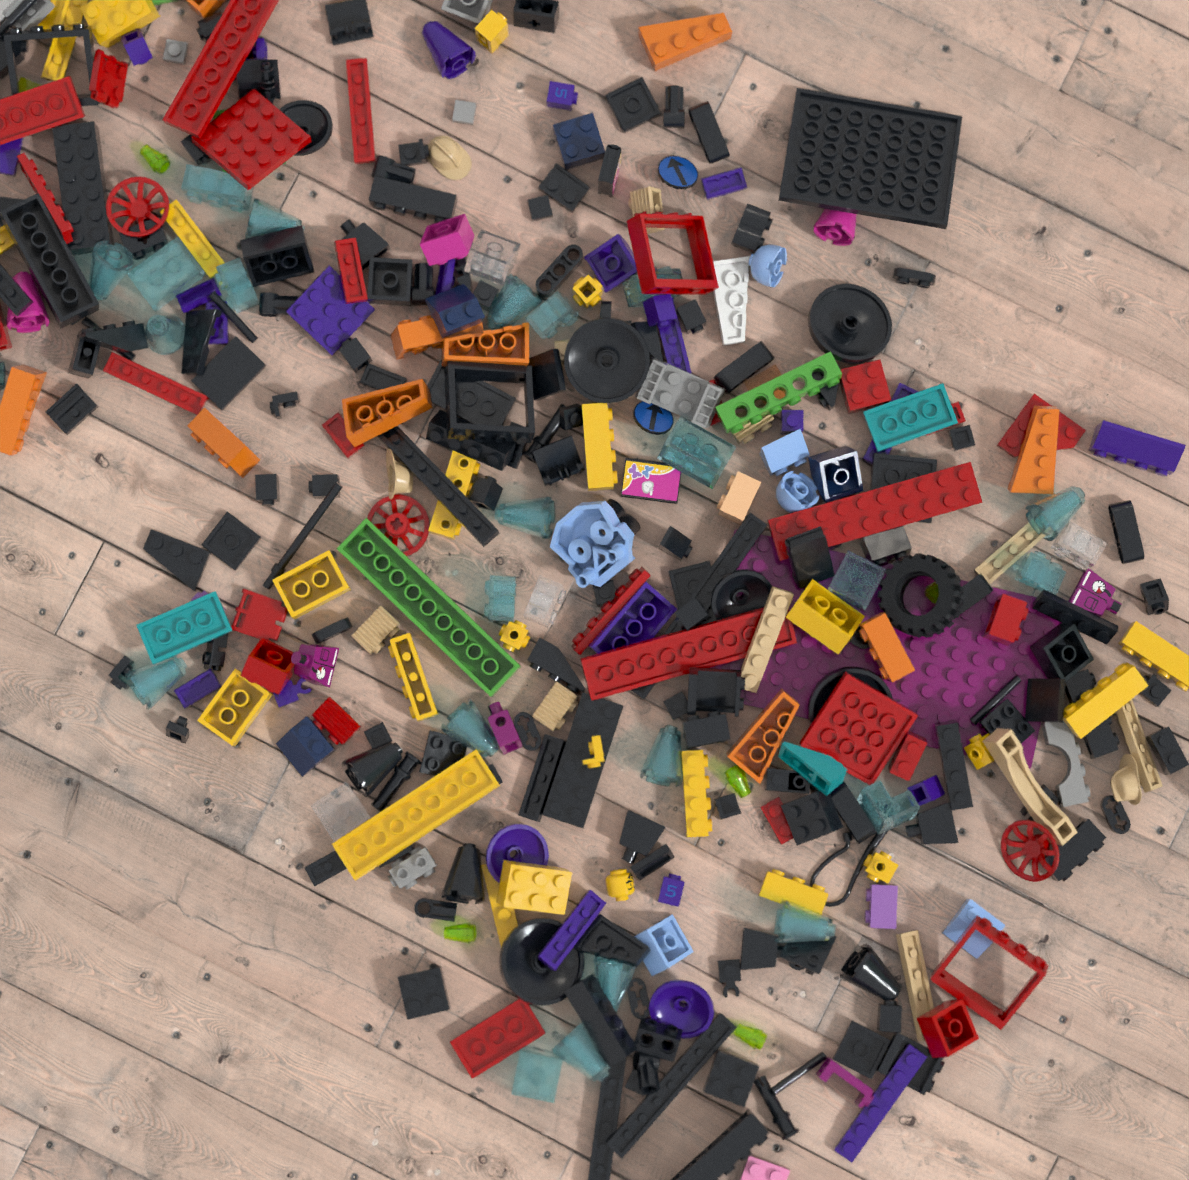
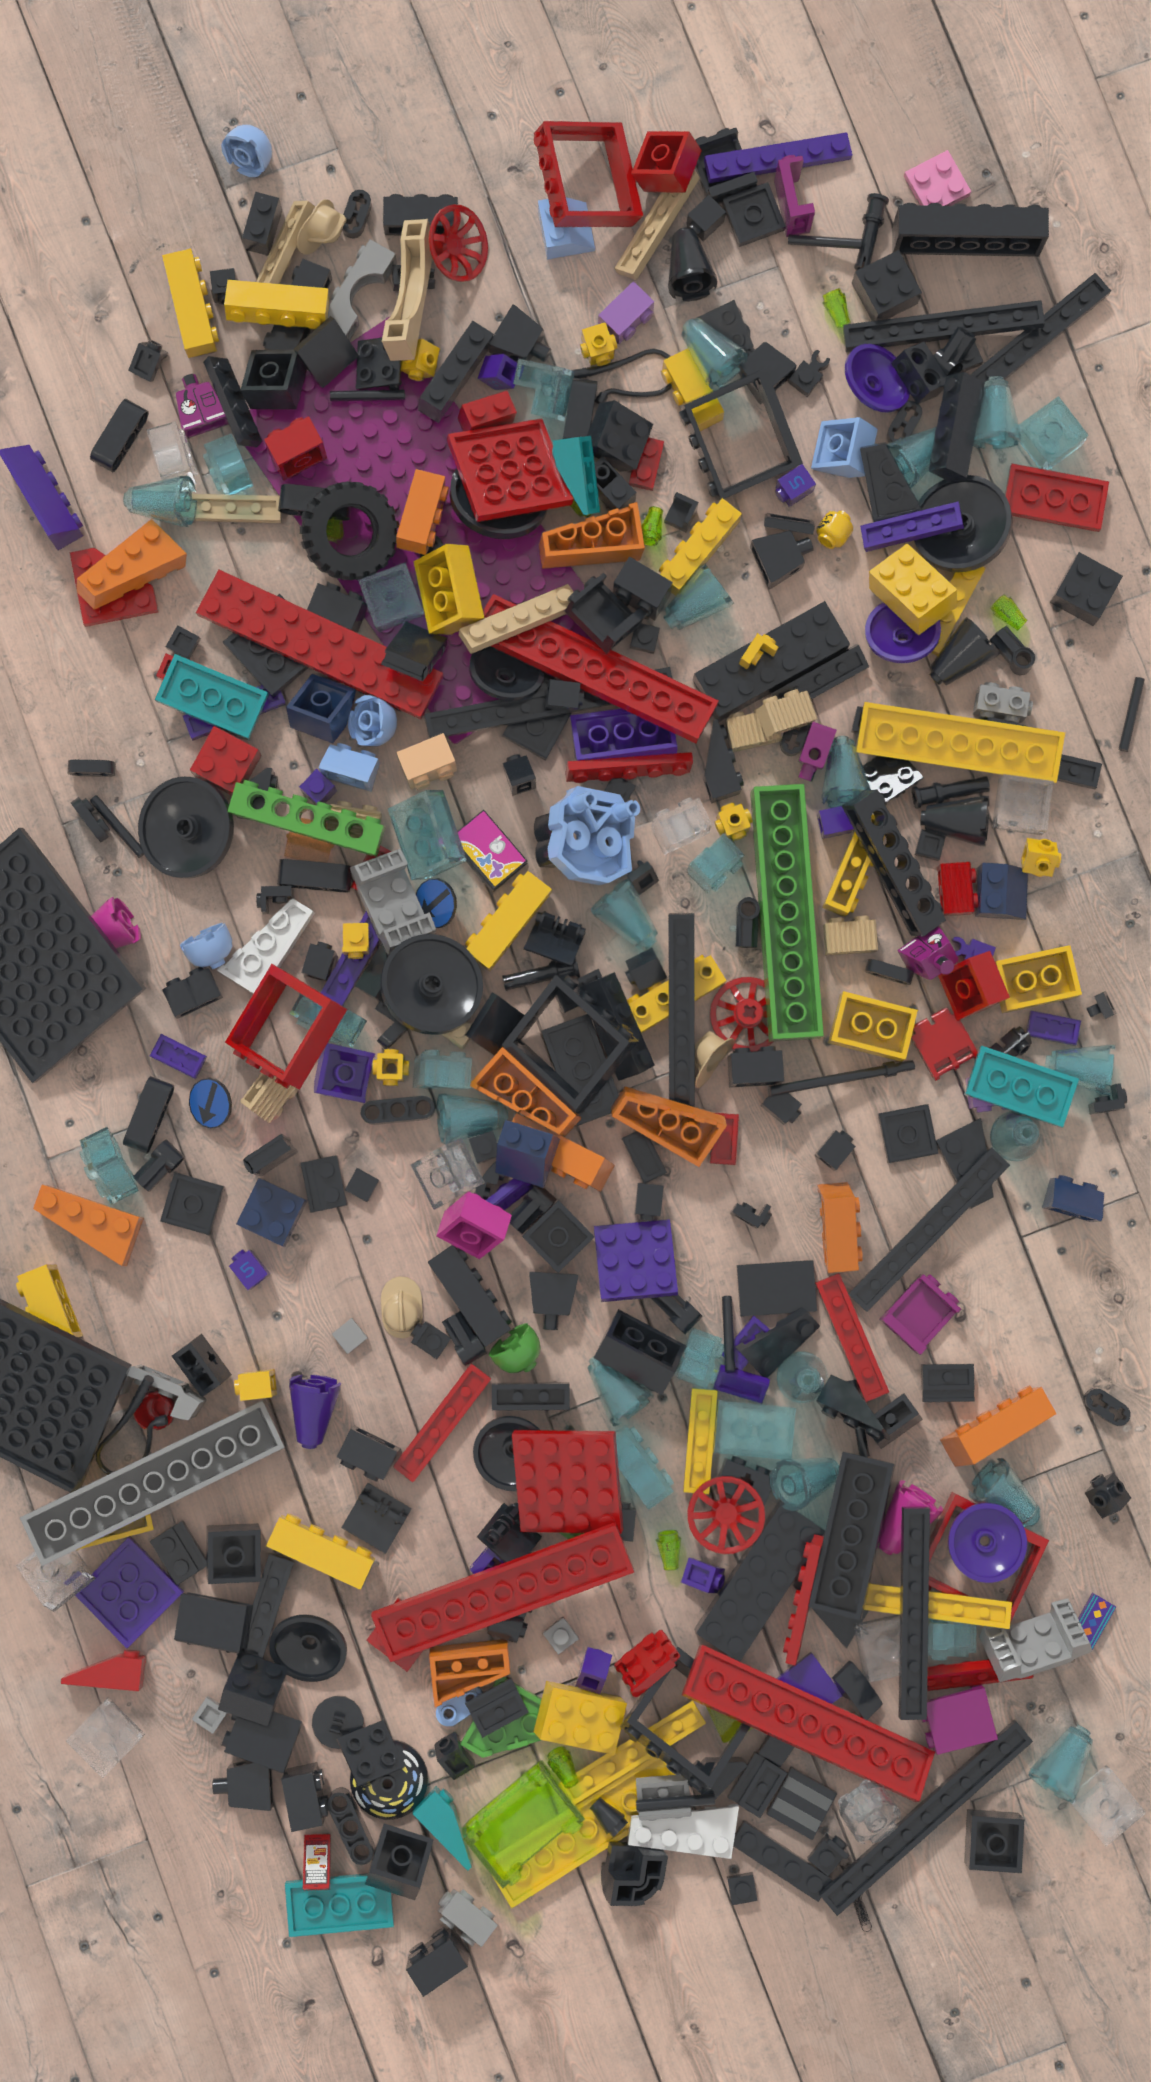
camera: 145 degrees left, 0 degrees up
(90, 590) = (1074, 1200): none -> dark blue slope
(119, 161) = (703, 1576): none -> dark purple bracket
(126, 436) = (920, 1313): none -> magenta panel
(165, 491) = (929, 1229): none -> black plate
(169, 597) = (1015, 1136): none -> clear light blue cone
(300, 788) = (1040, 857): none -> yellow brick
(320, 172) = (531, 1396): none -> black brick
(323, 938) = (1131, 714): none -> black bar
(350, 270) = (586, 1276): red plate -> none
(353, 191) = (517, 1351): none -> bright green cylinder
(361, 492) = (755, 1068): none -> black brick
(387, 51) = (367, 1453): none -> black brick
(438, 706) = (882, 857): none -> black brick
(447, 579) = (747, 925): none -> black piece
(450, 696) = (833, 822): none -> dark purple brick
(539, 550) = (643, 877): none -> black tile
(541, 732) = (786, 713): none -> tan brick
(571, 416) = (507, 969): black plate -> none
(659, 310) = (343, 987): dark purple brick -> none
(680, 348) = (355, 940): none -> yellow bracket
(700, 873) = (778, 423): none -> black window
(705, 78) = (107, 1166): none -> clear light blue brick
(755, 336) = (278, 894): none -> black bracket
(903, 290) = (117, 825): none -> black bar
(943, 309) = (91, 768): none -> black beam

